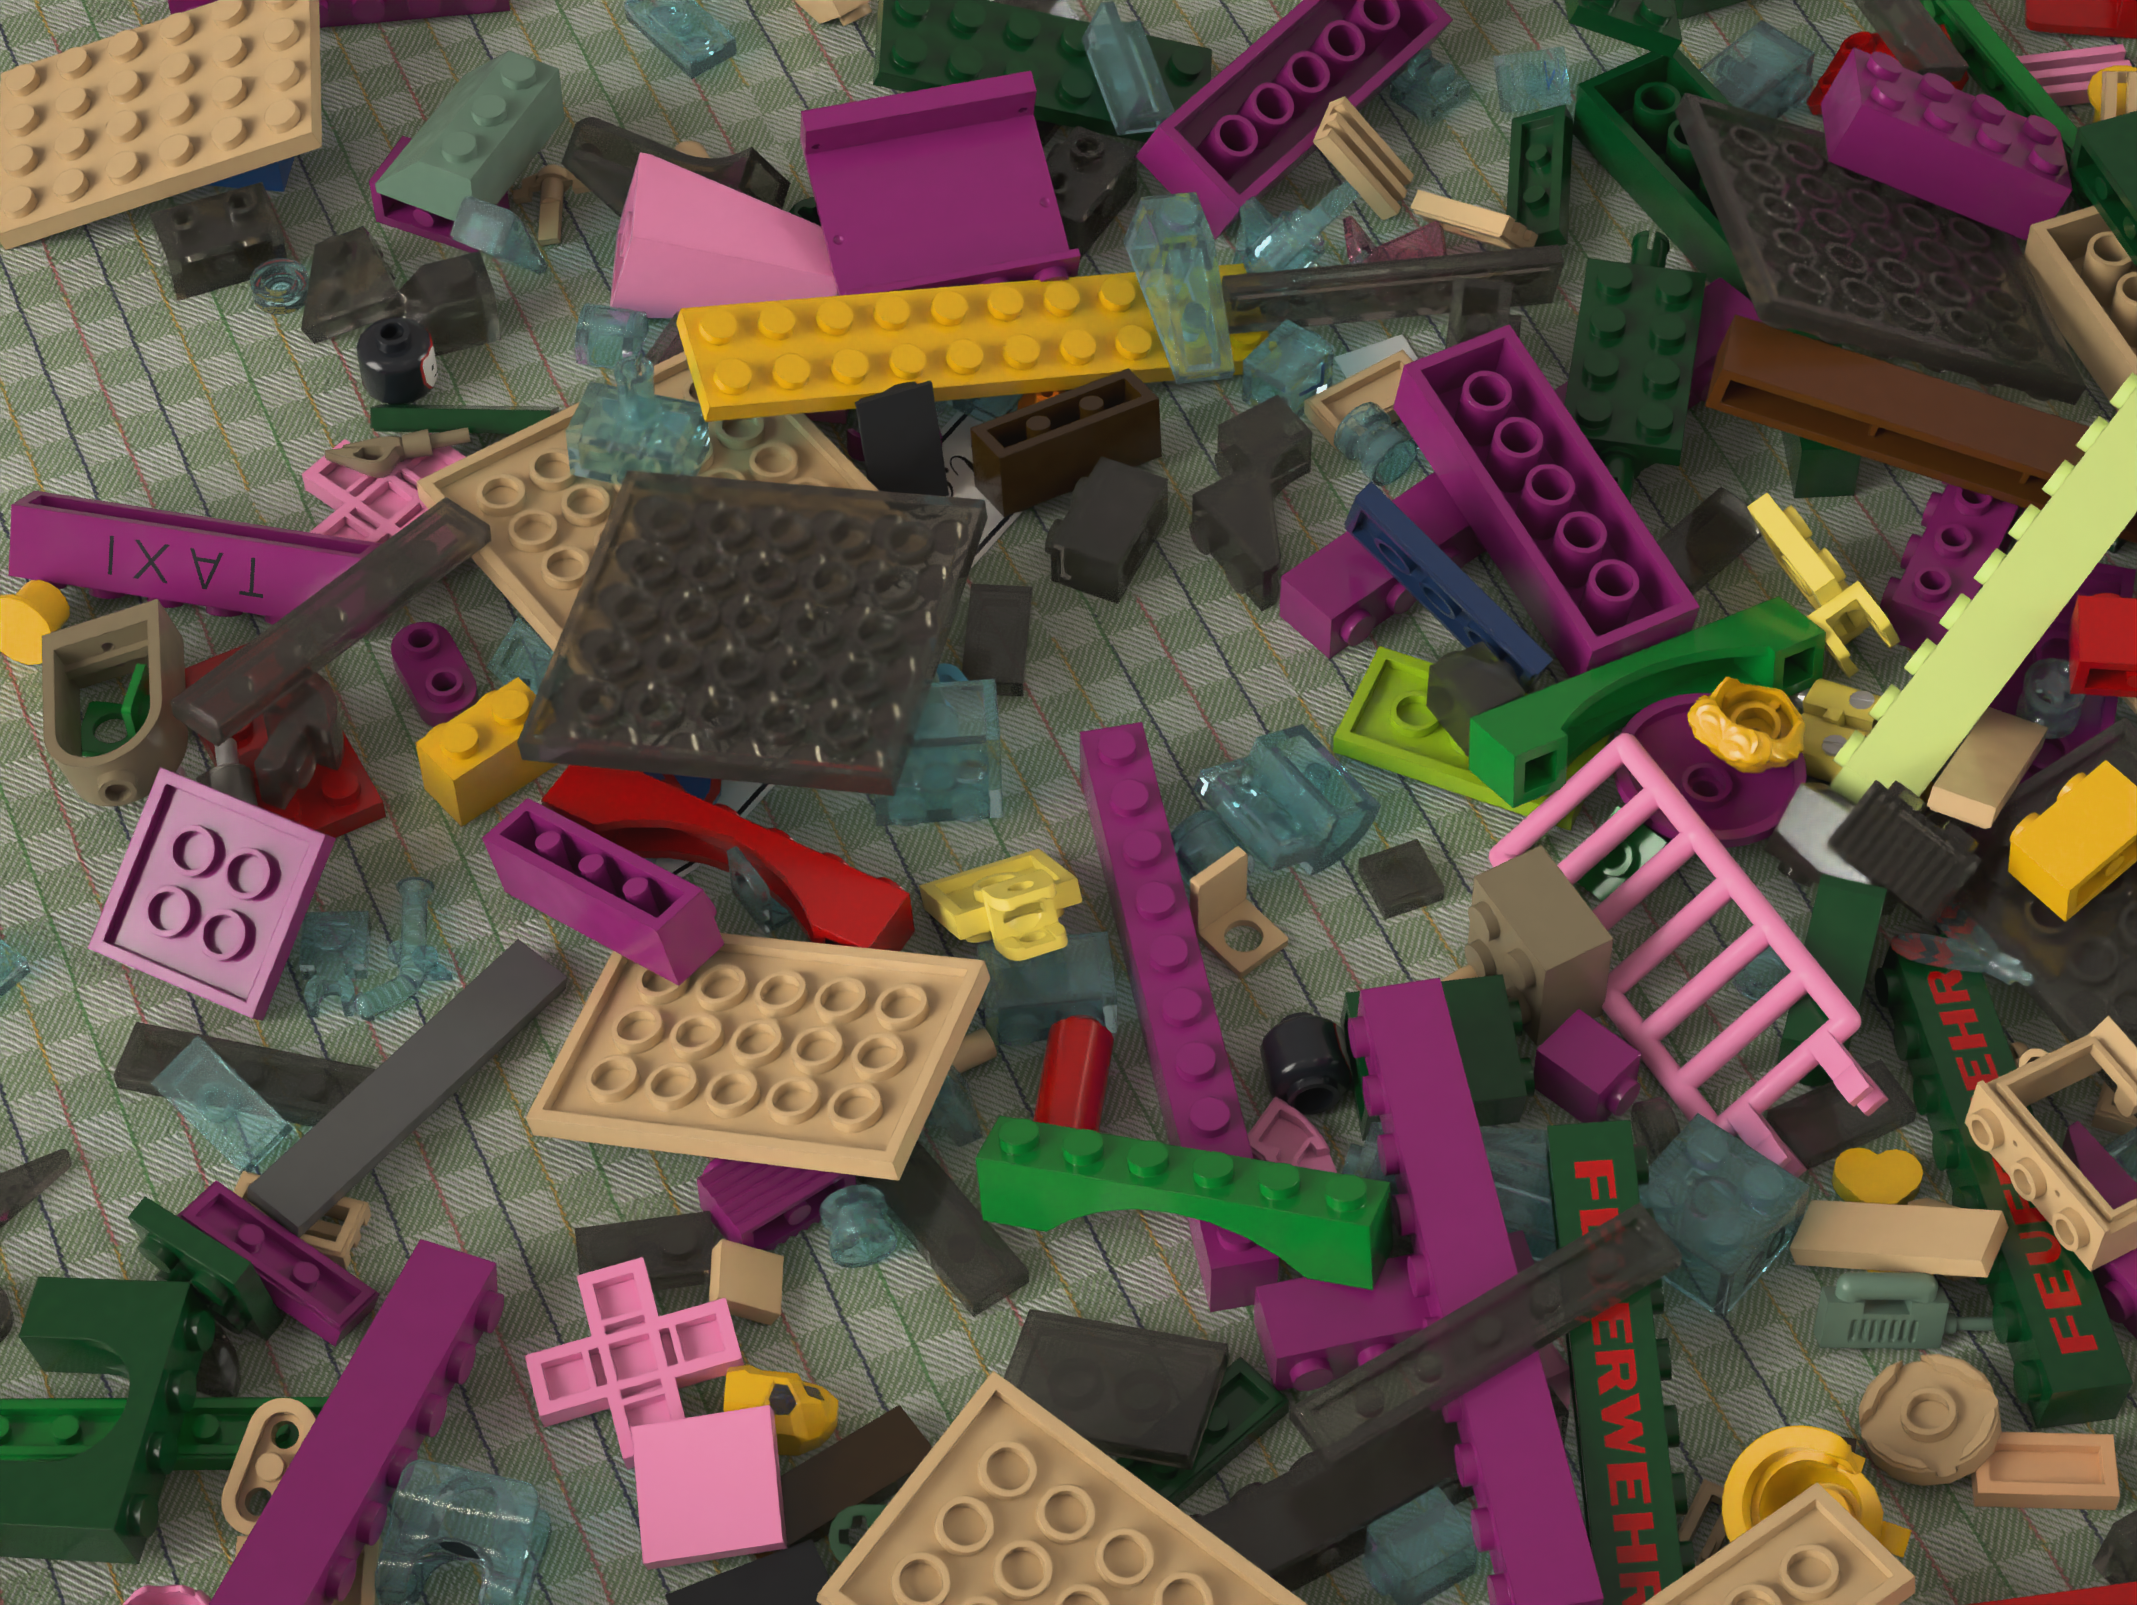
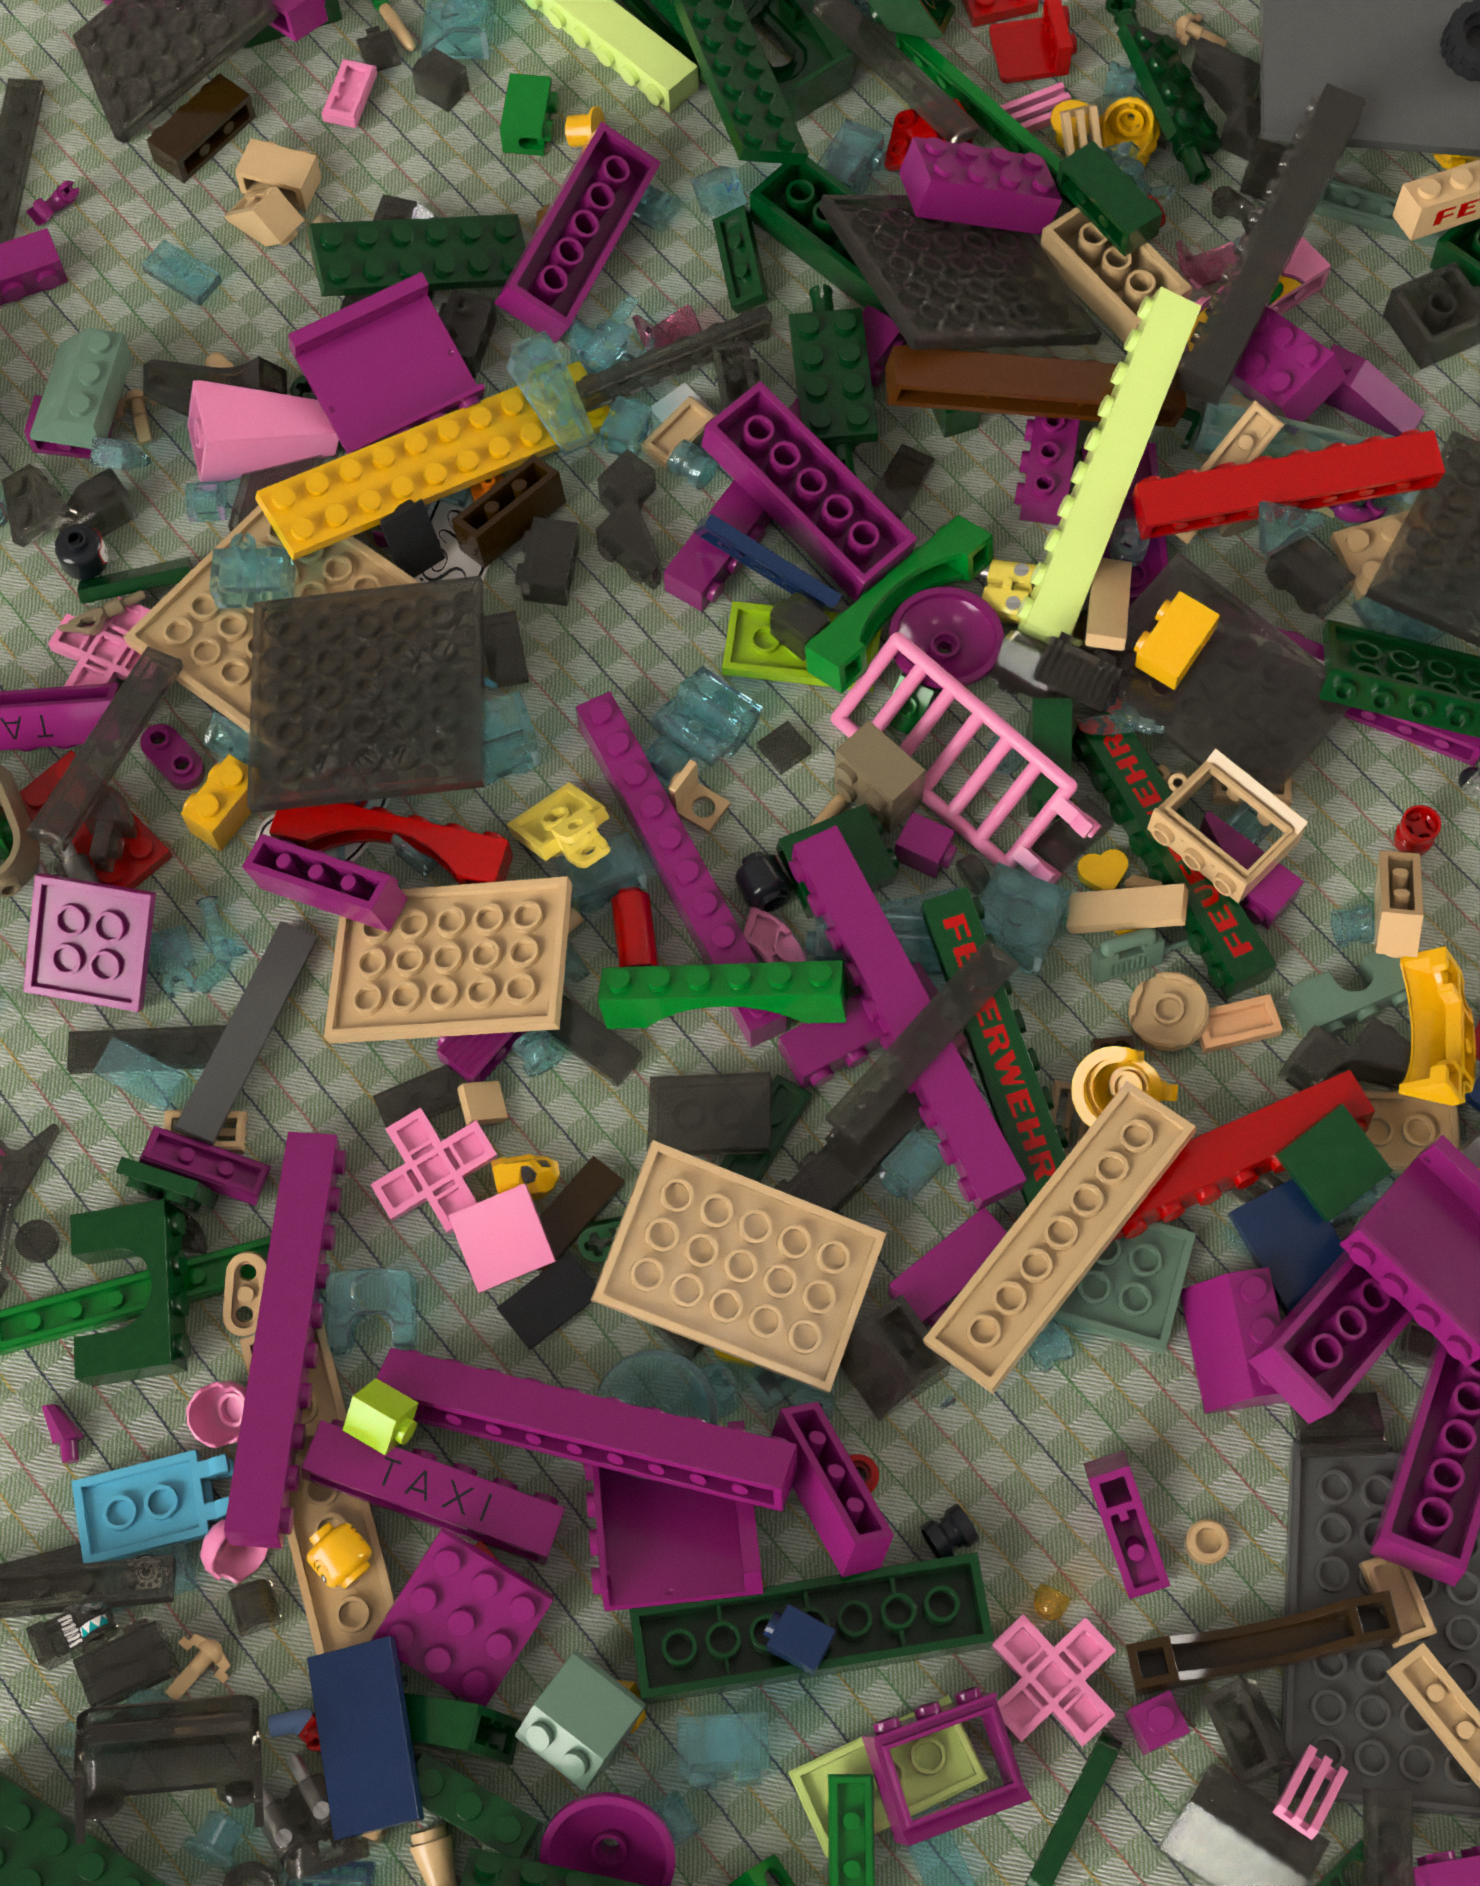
camera: 15 degrees left, 15 degrees up
(1126, 72) = (474, 249): clear light blue panel -> none
(1363, 158) = (628, 268): tan tile -> none
(1473, 221) = (709, 300): tan tile -> none
(1748, 726) = (962, 595): yellow hair -> none
(1839, 608) = (994, 511): light yellow plate -> none

